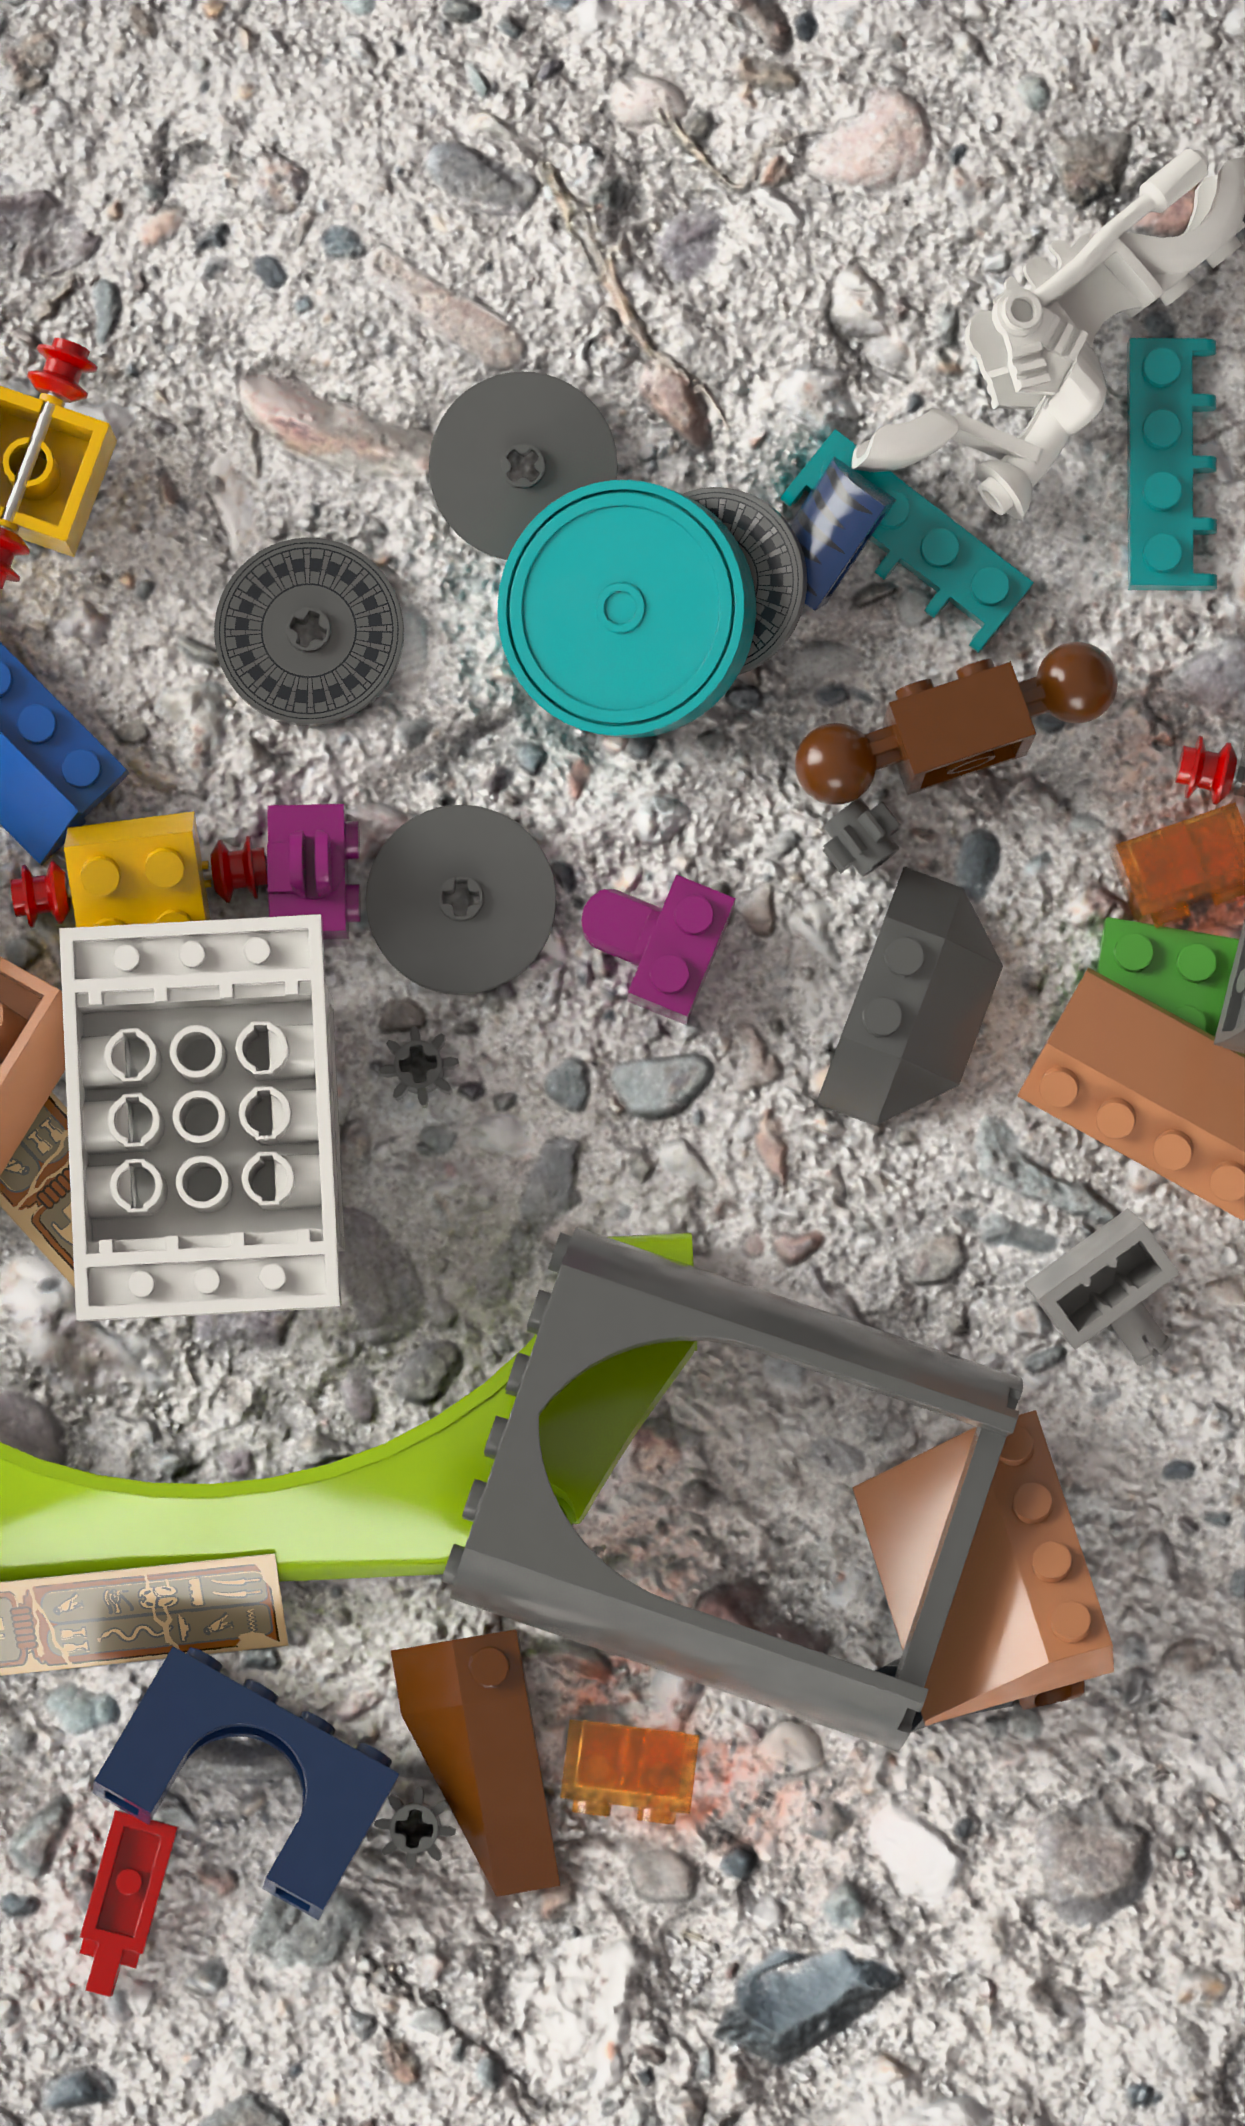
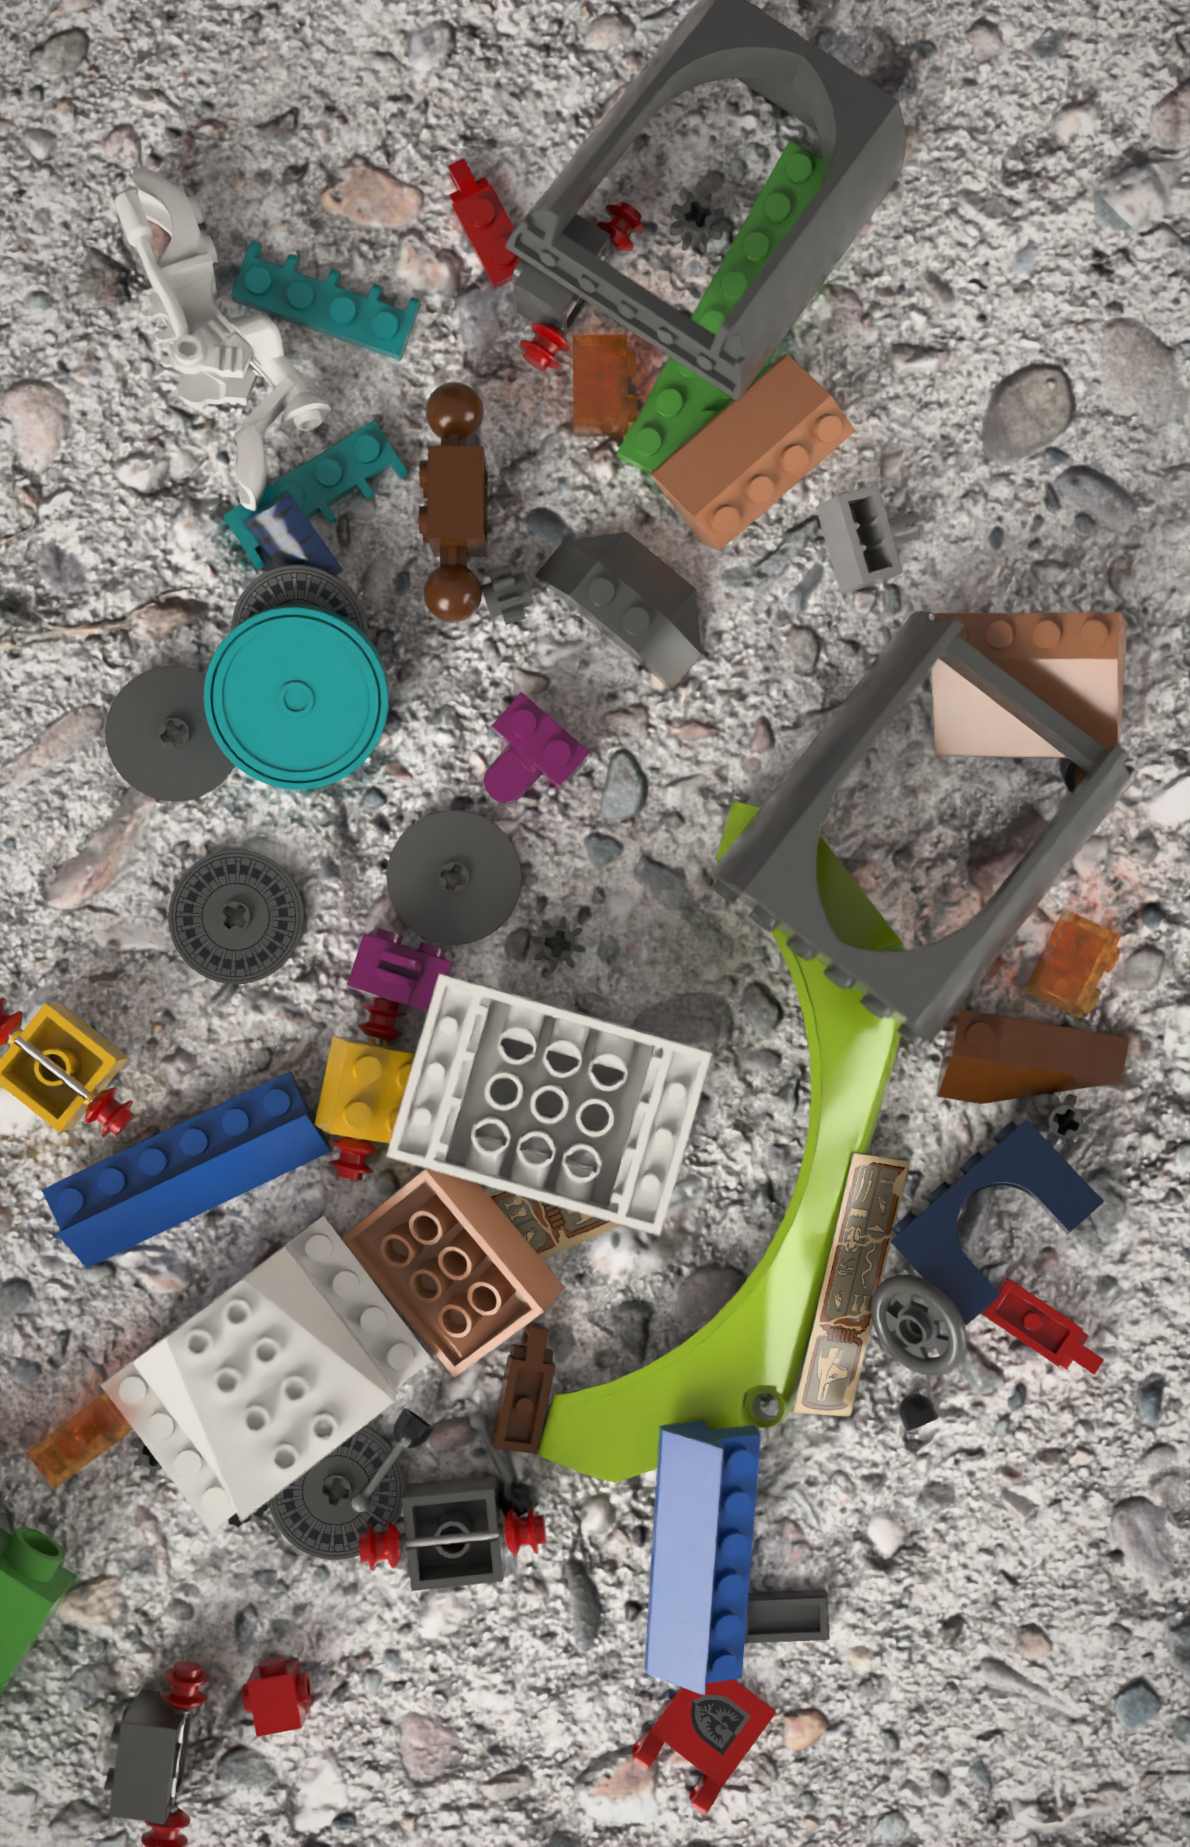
camera: 75 degrees left, 5 degrees up
(71, 1722) = (918, 1325): none -> dark grey plate

